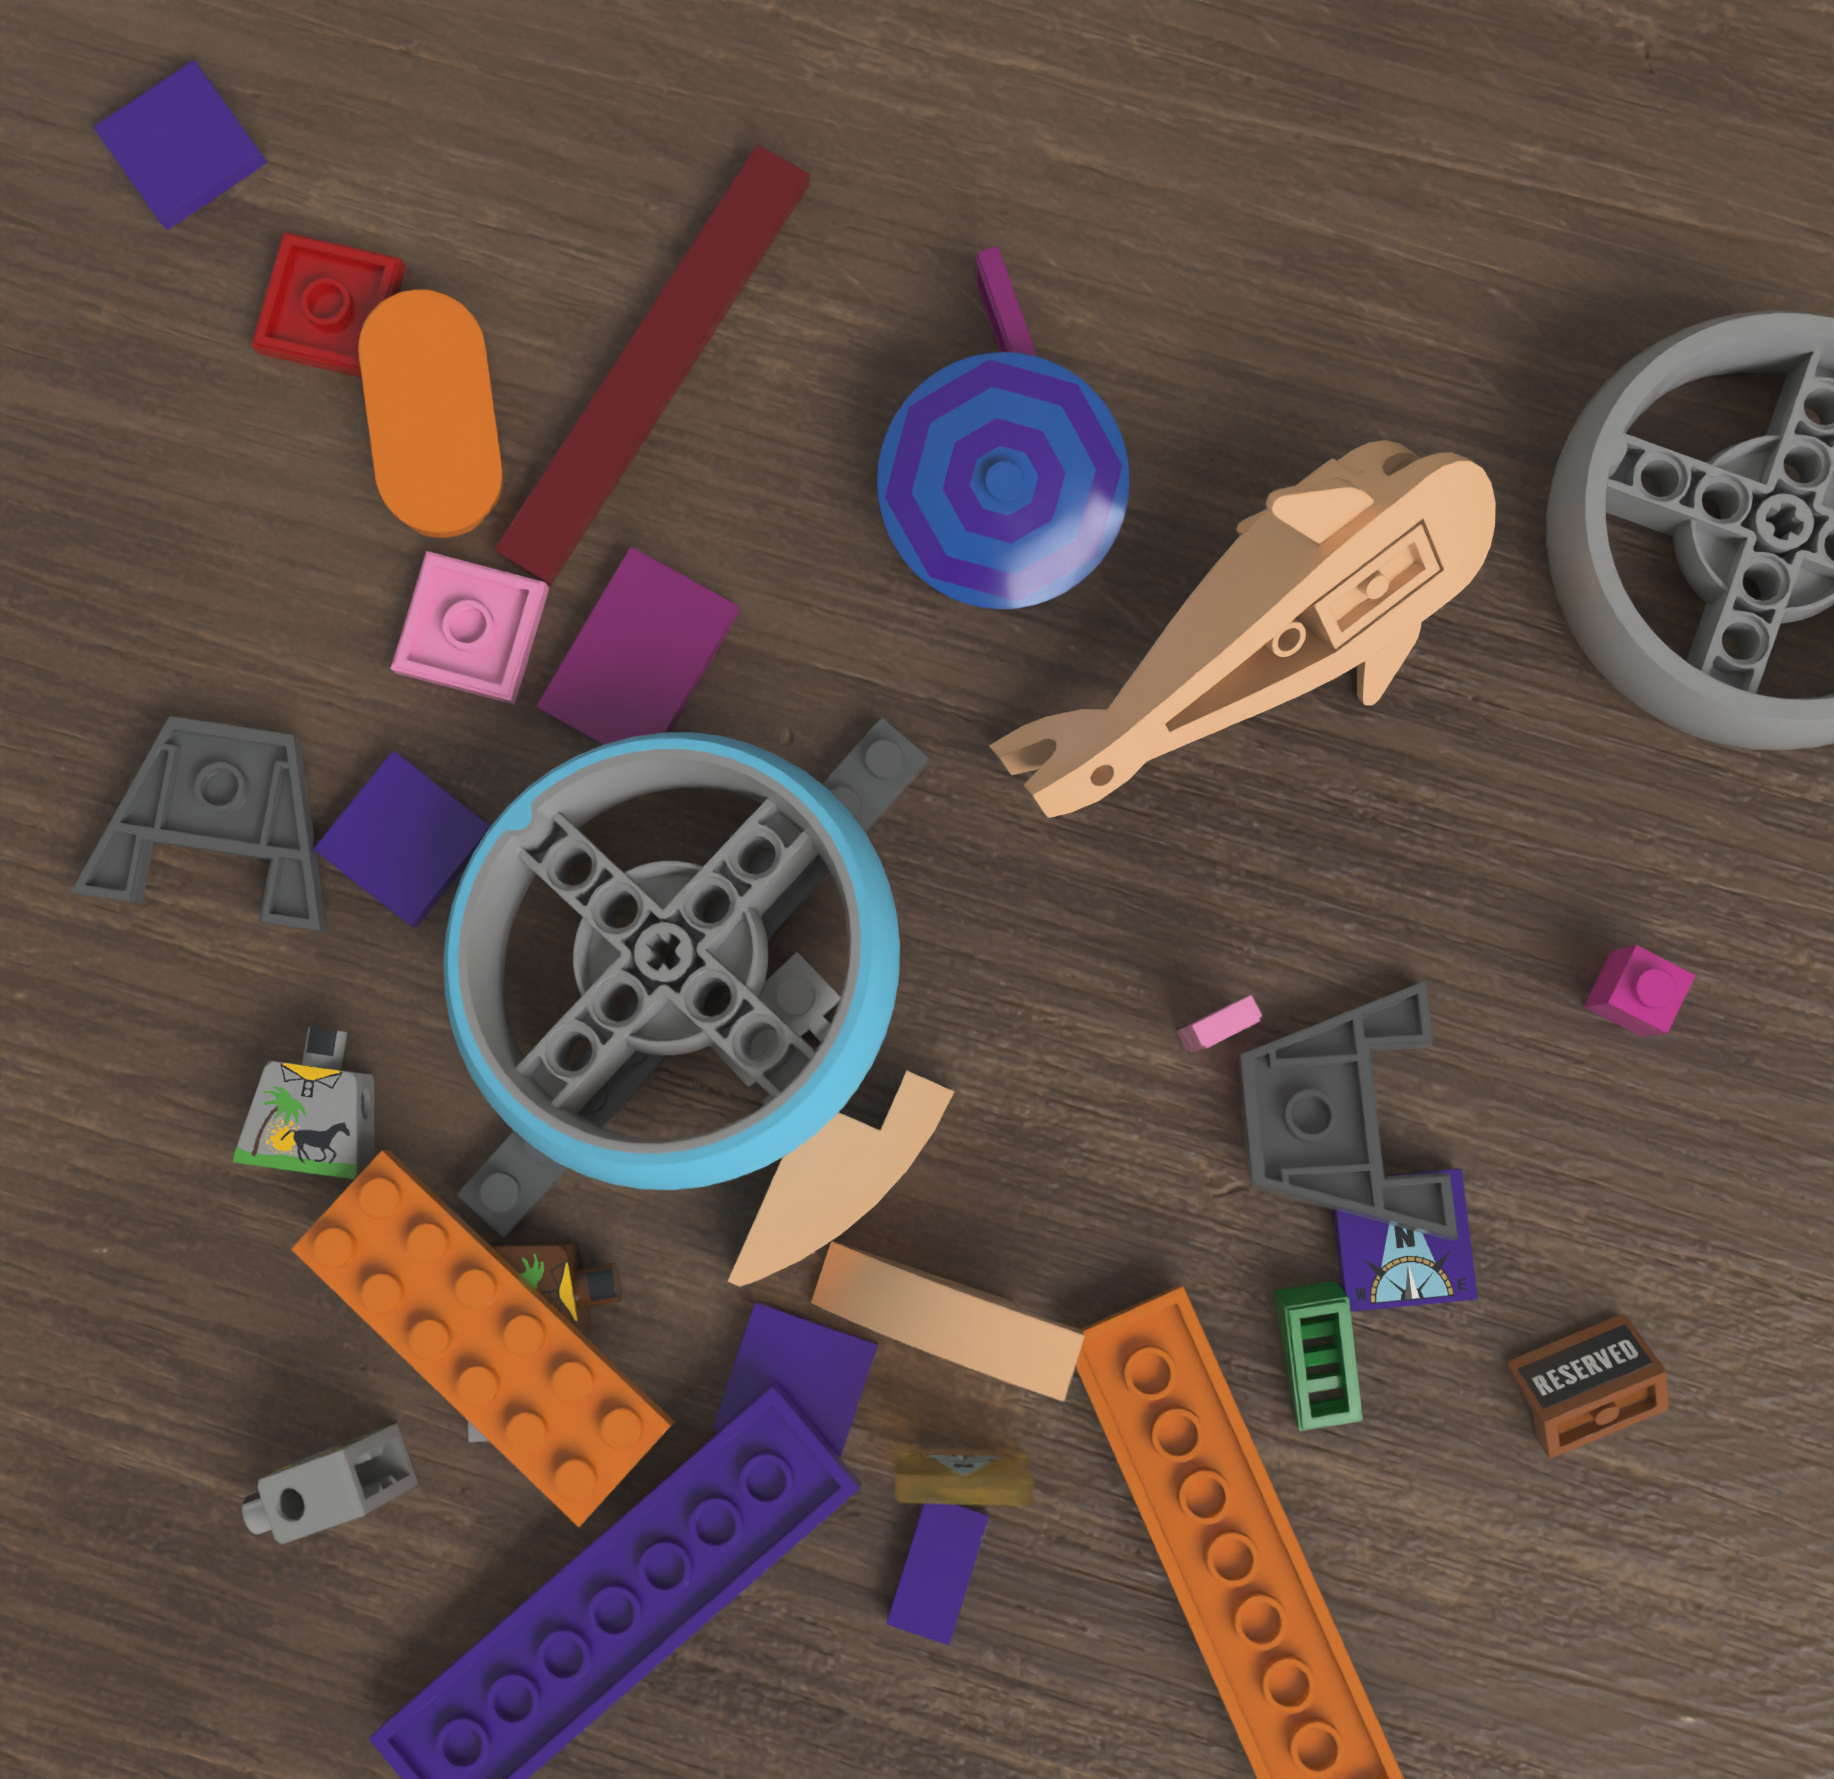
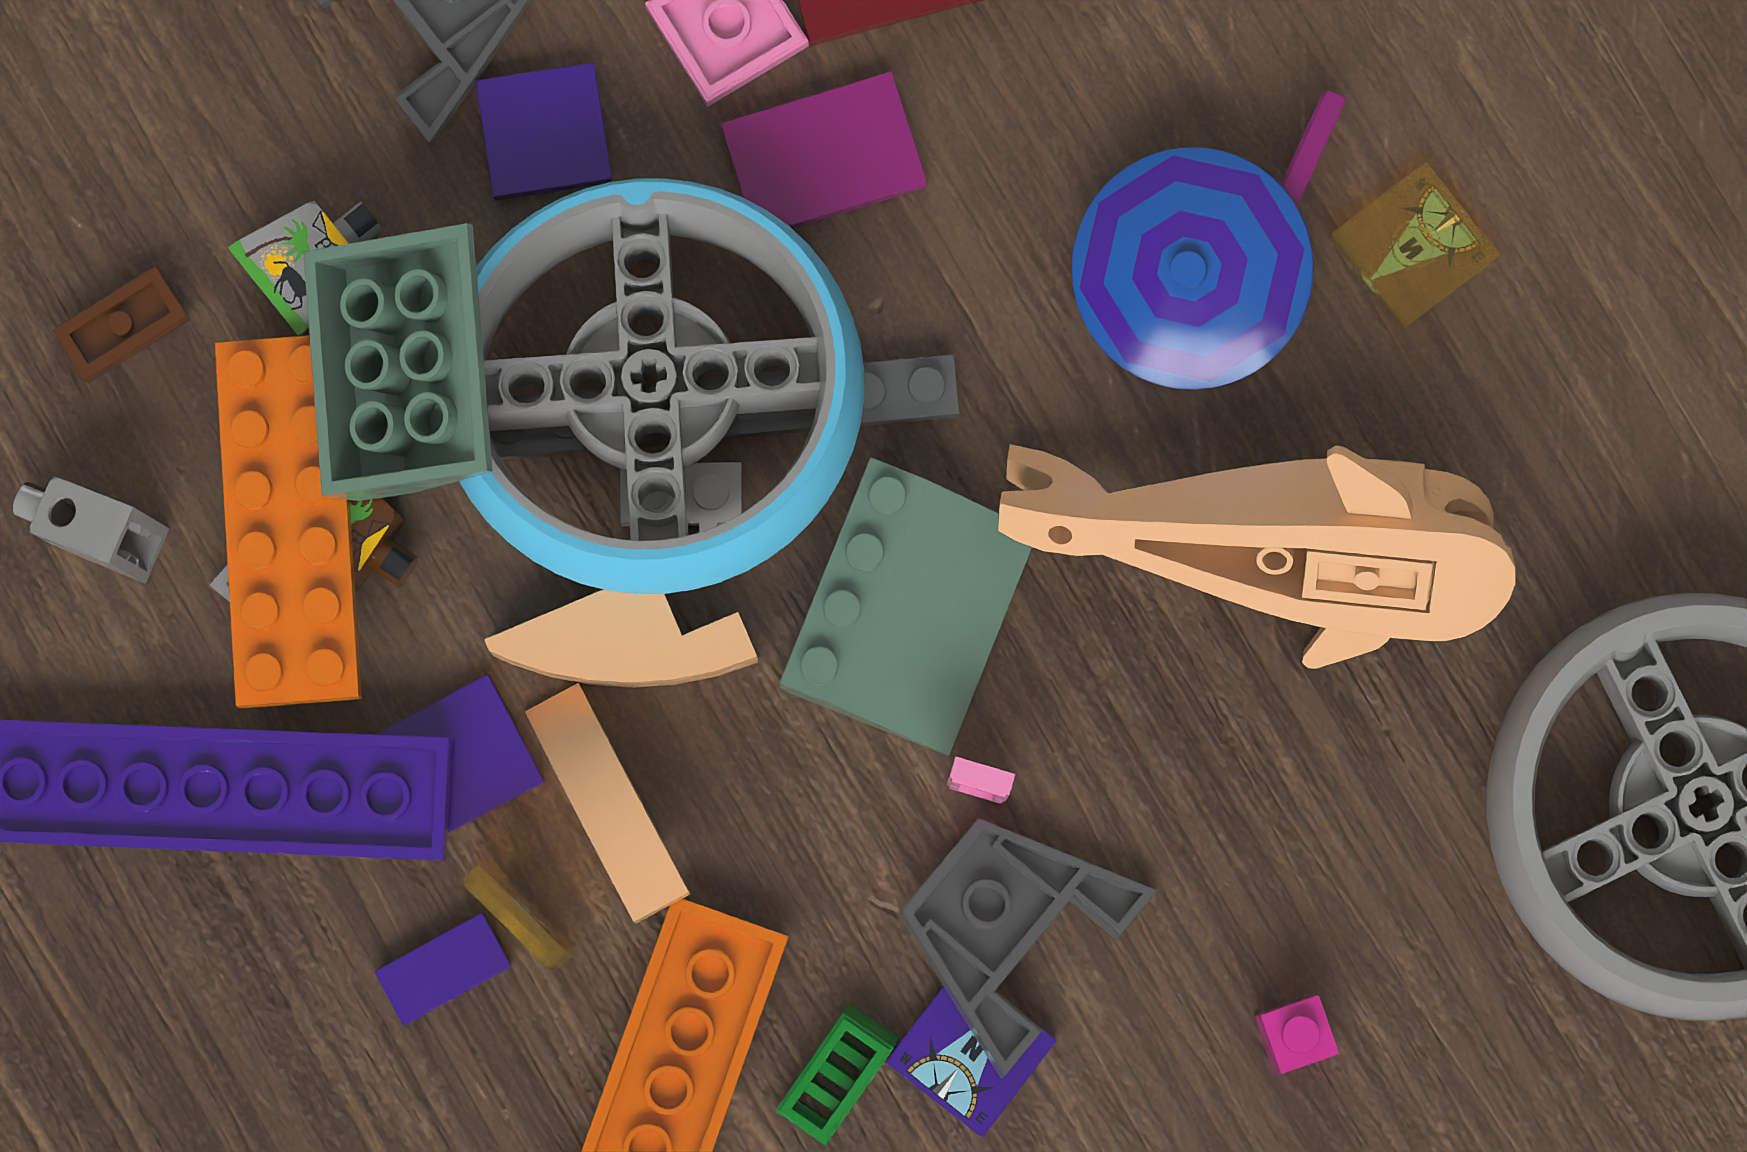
camera: 35 degrees right, 0 degrees up
(207, 1300) = (121, 325): none -> reddish brown plate
(450, 1131) = (397, 363): none -> sand green slope
(1030, 944) = (906, 608): none -> sand green slope
(1148, 317) = (1414, 245): none -> clear yellow tile

